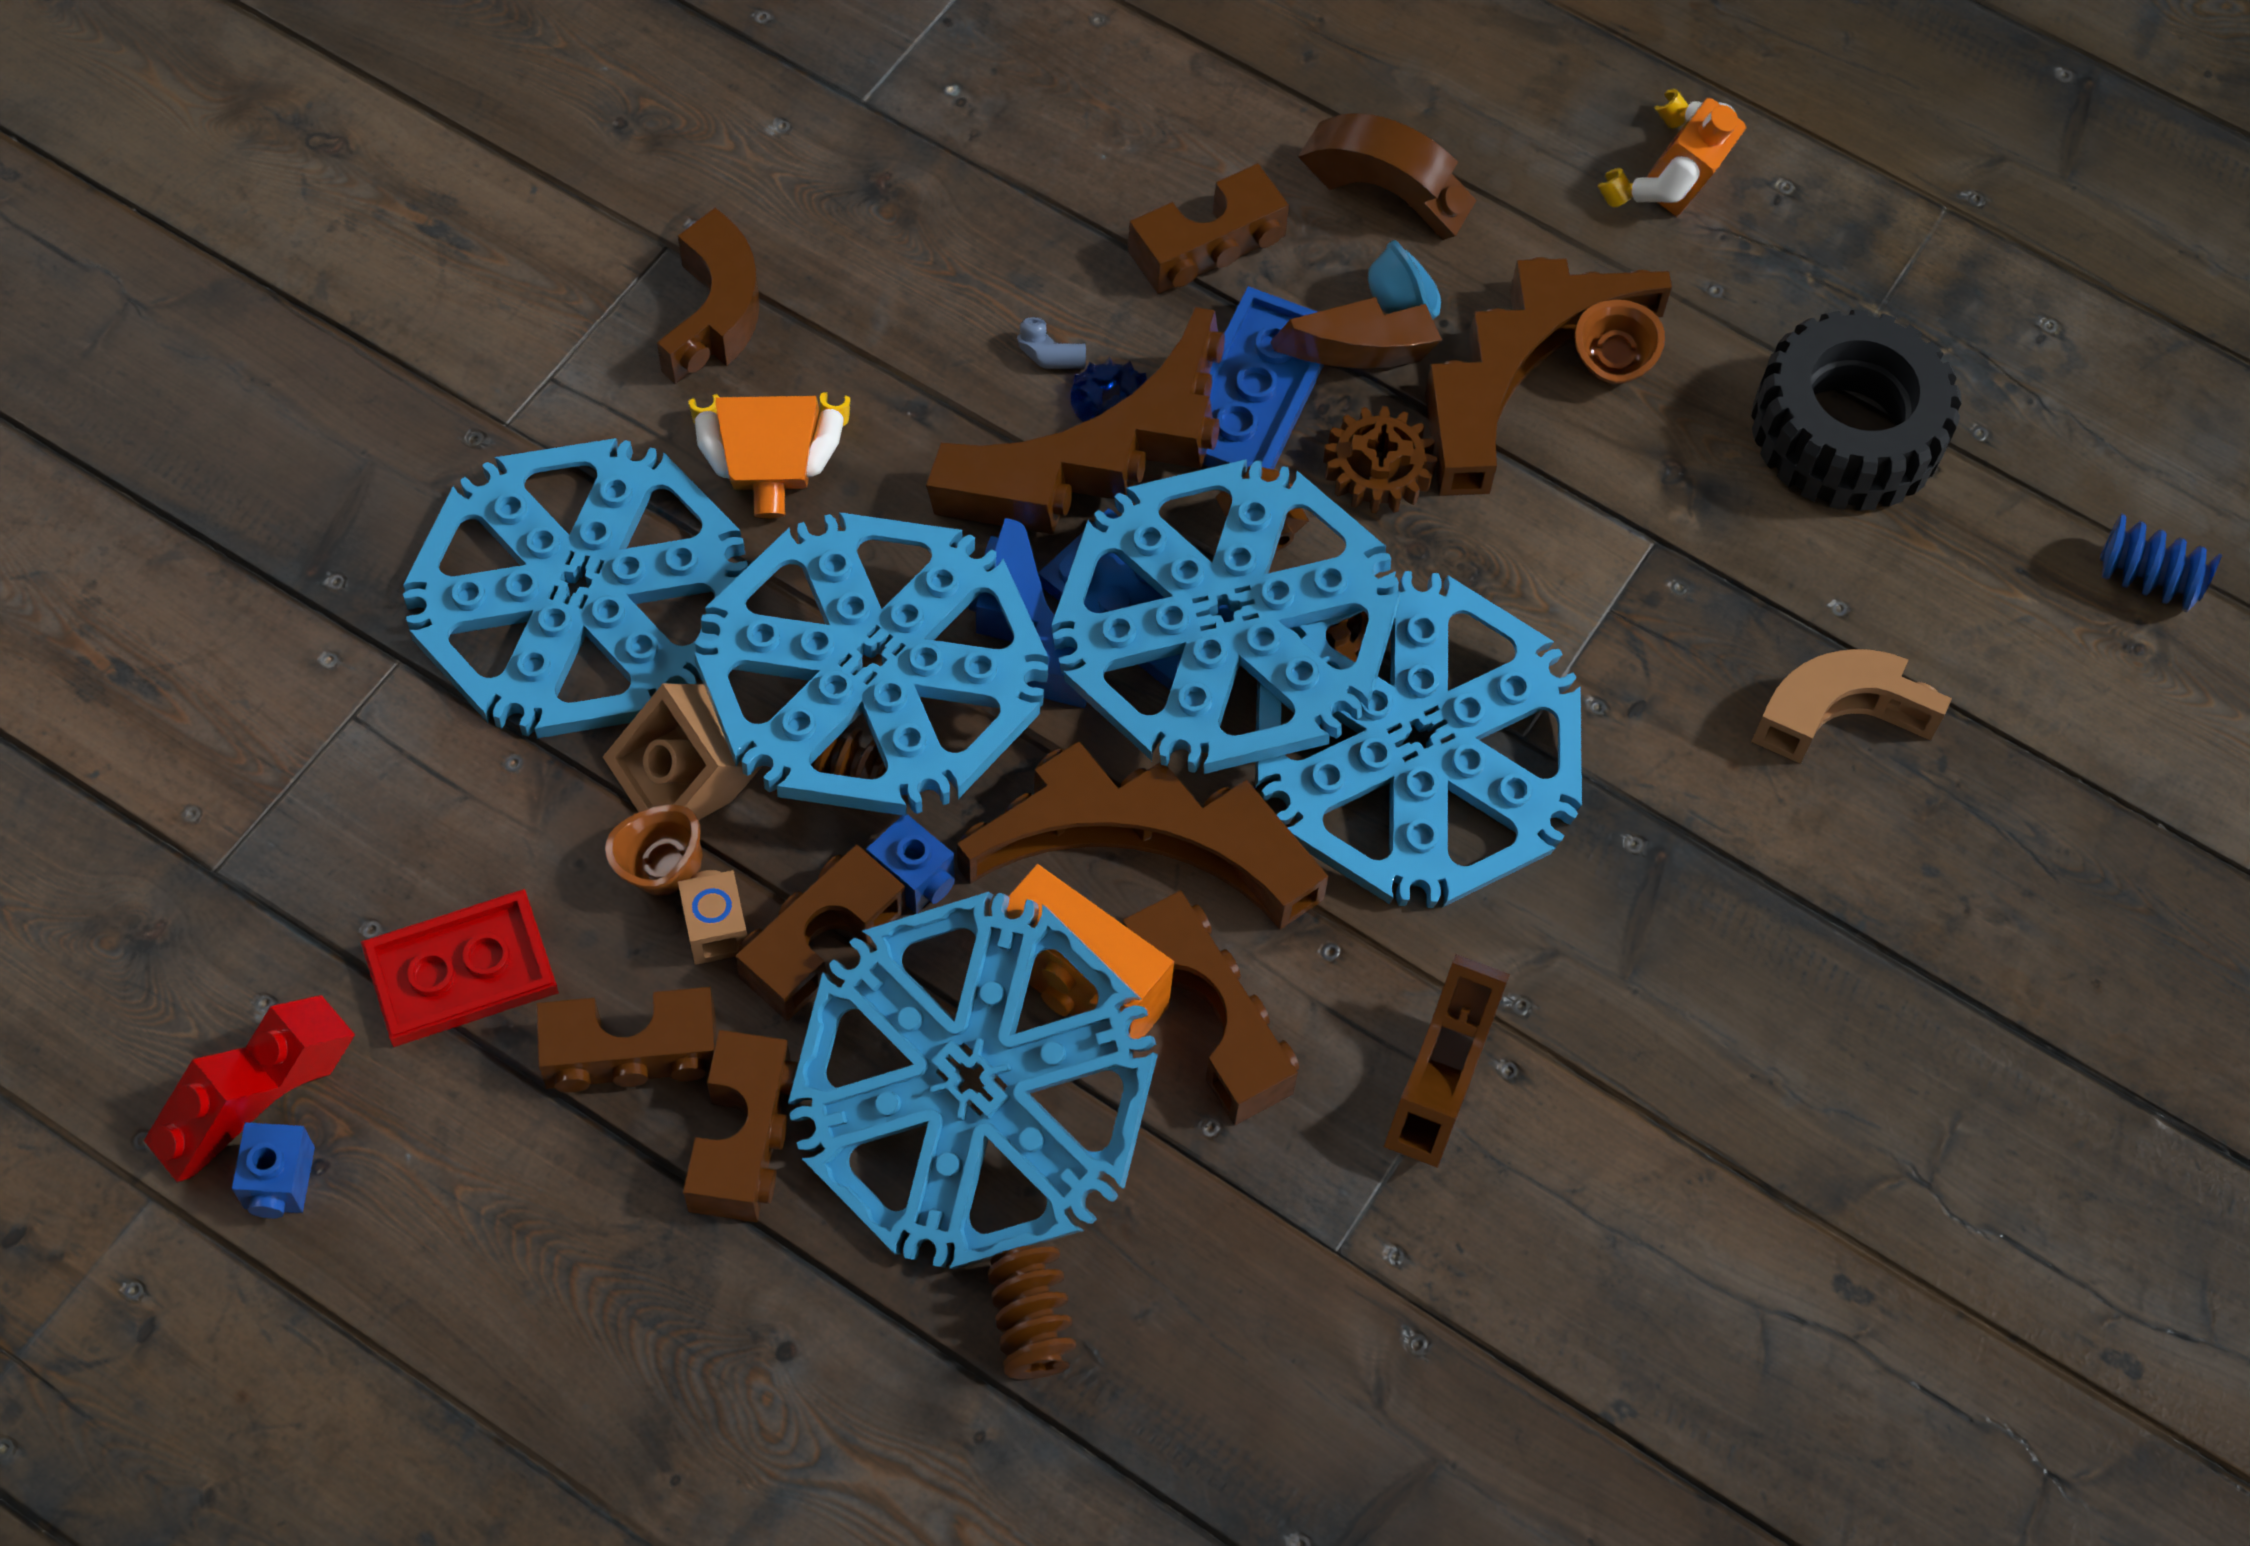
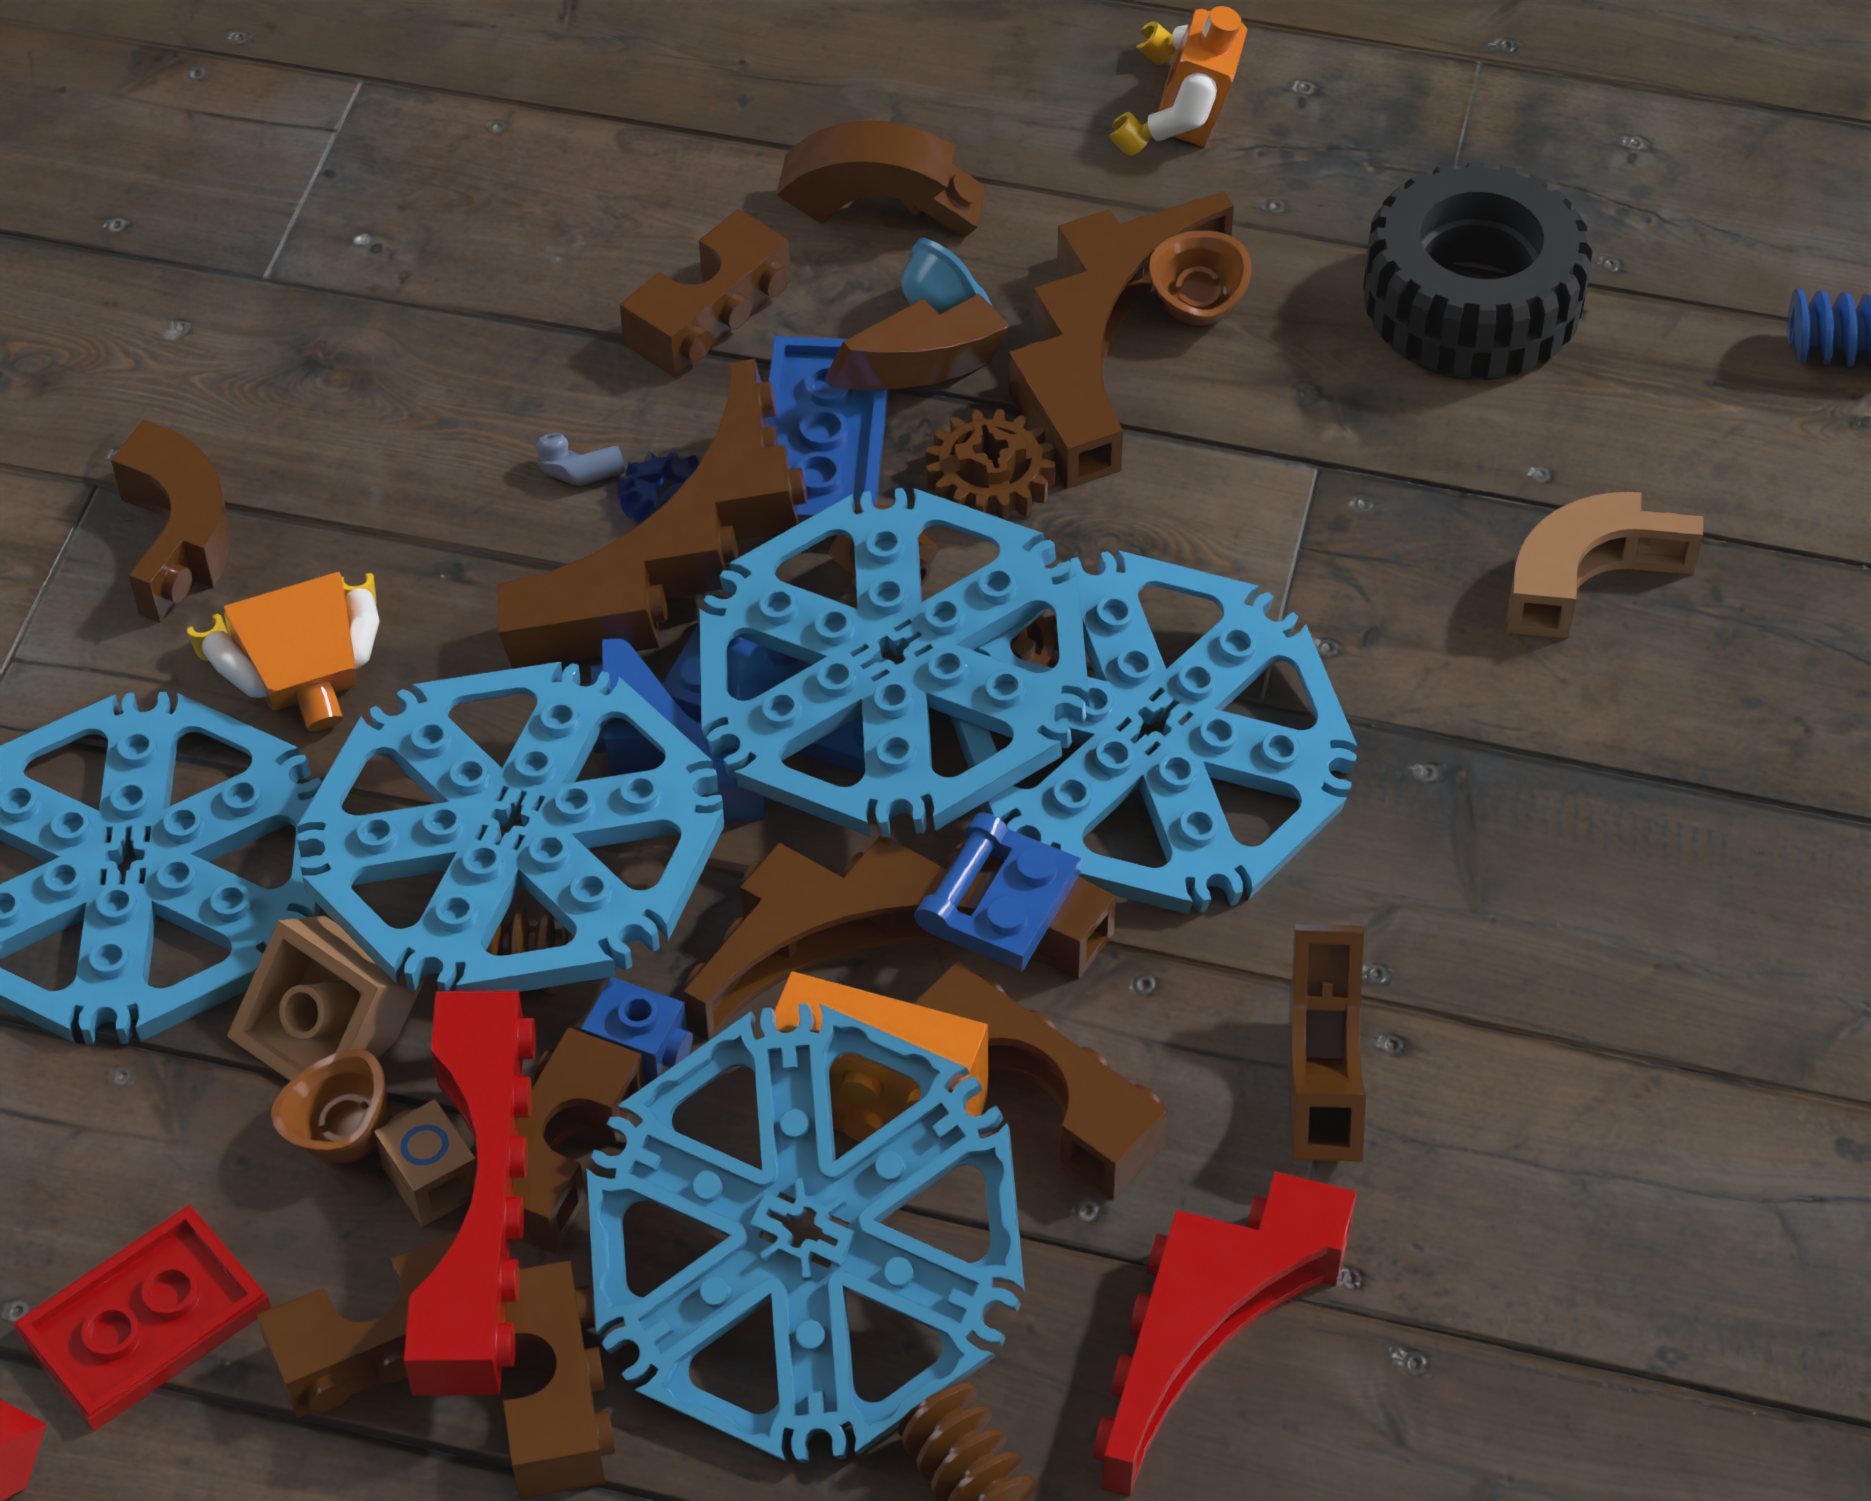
camera: 15 degrees left, 10 degrees down
(682, 1060) = (458, 1312): none -> red arch
(1243, 859) = (1018, 901): none -> blue plate
(1271, 1232) = (1206, 1292): none -> red arch

